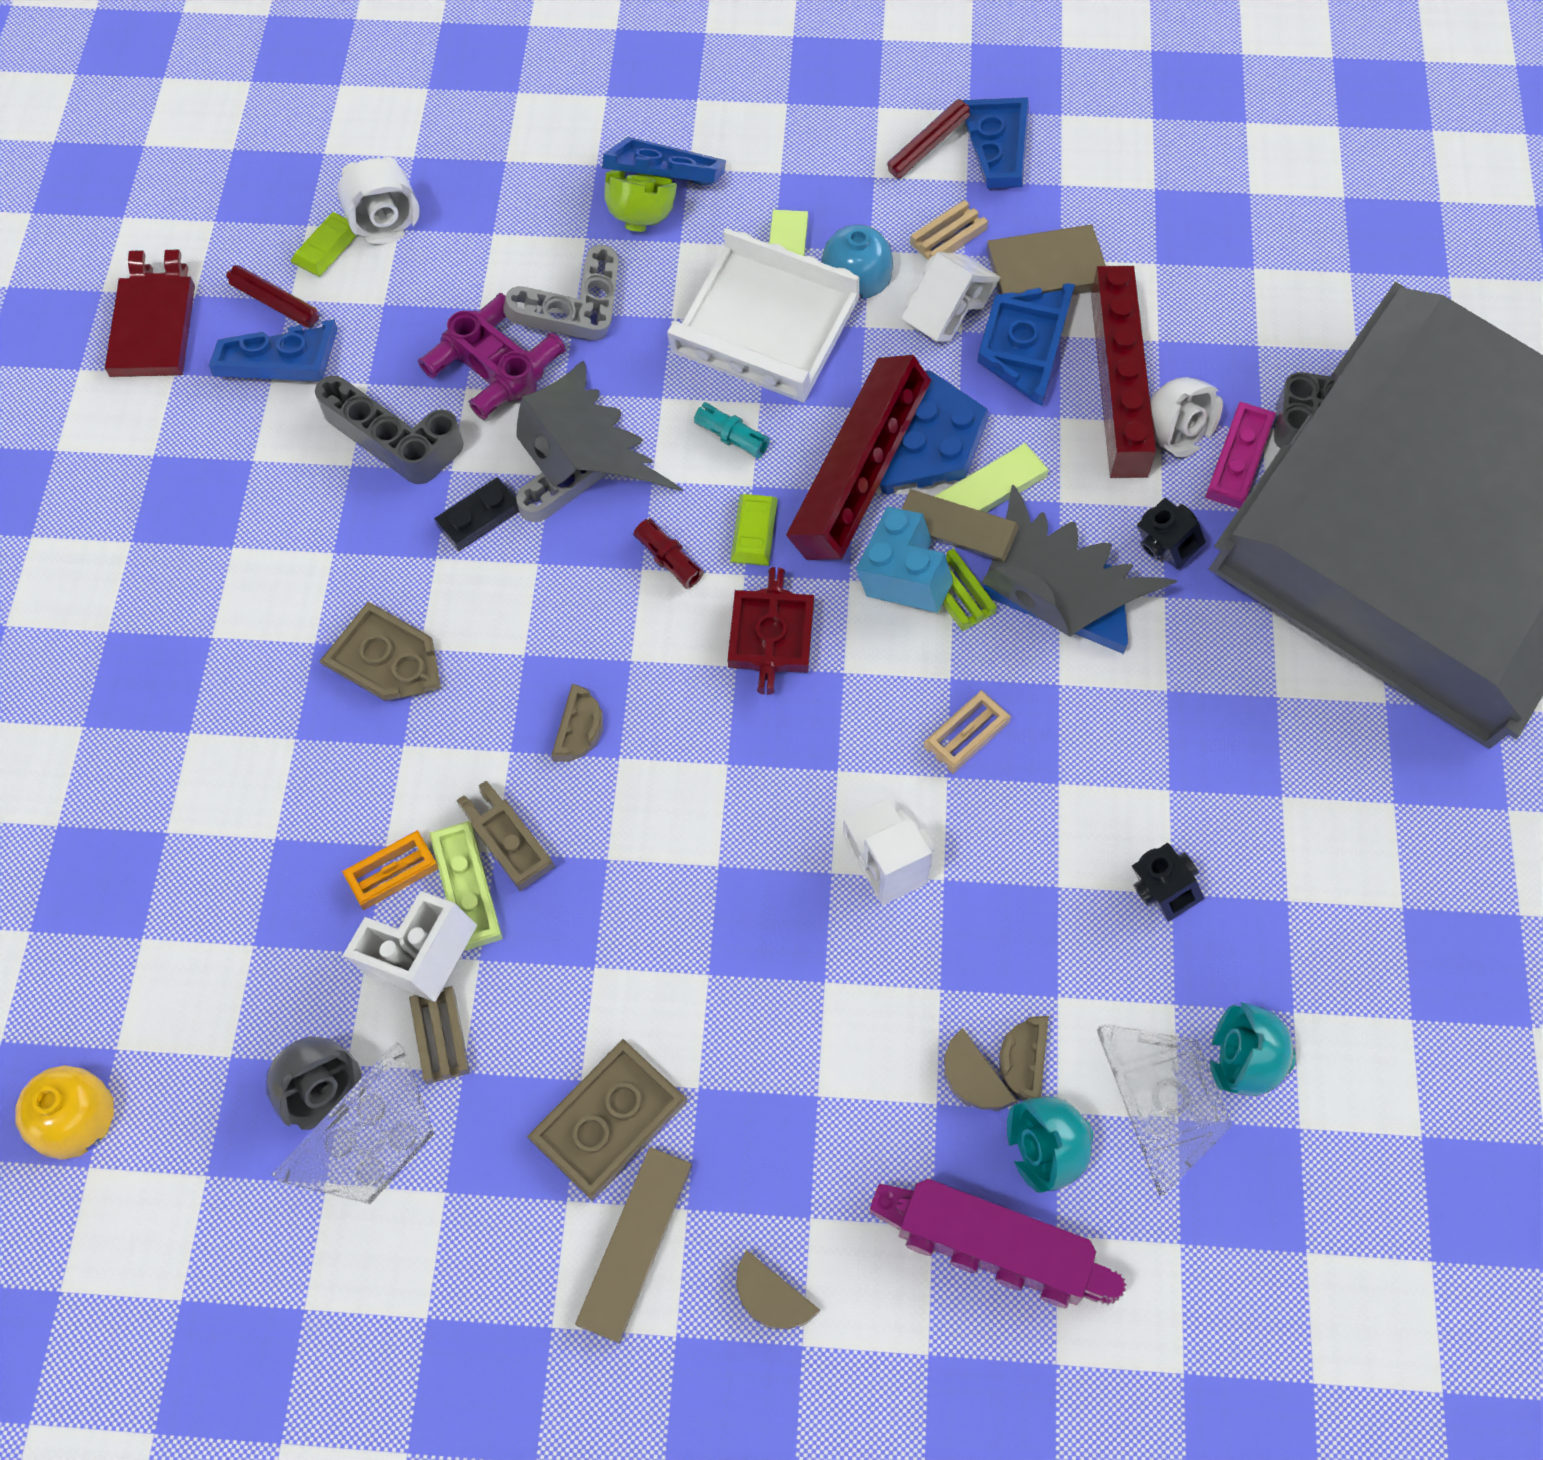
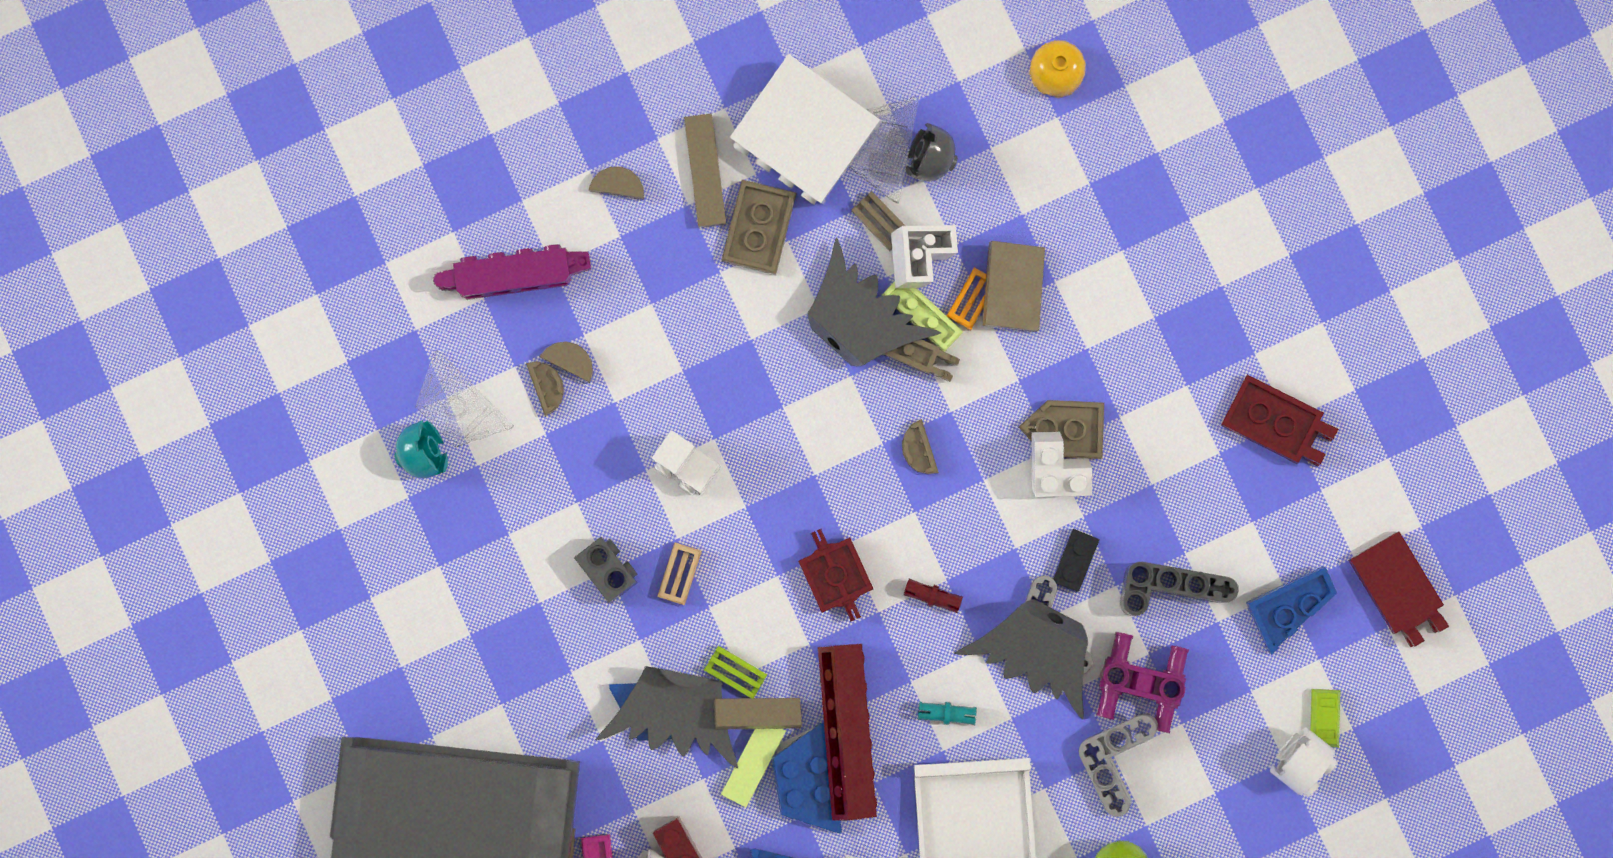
camera: 150 degrees right, 20 degrees up
(141, 542) = (1277, 421): none -> dark red tile
(272, 296) = (1329, 652): dark red axle -> none
(327, 852) = (1013, 286): none -> dark tan tile
(426, 606) = (1055, 475): none -> white brick
(456, 1211) = (804, 130): none -> white panel
(554, 916) = (854, 319): none -> dark grey piece
(754, 529) = (890, 647): lime tile -> none
(901, 566) = (783, 663): dark azure brick -> none
(1051, 1141) = (507, 340): teal cylinder -> none
(1071, 776) = (601, 573): none -> dark grey brick
(1167, 881) = (513, 531): black brick -> none
(1170, 533) = (617, 780): black brick -> none

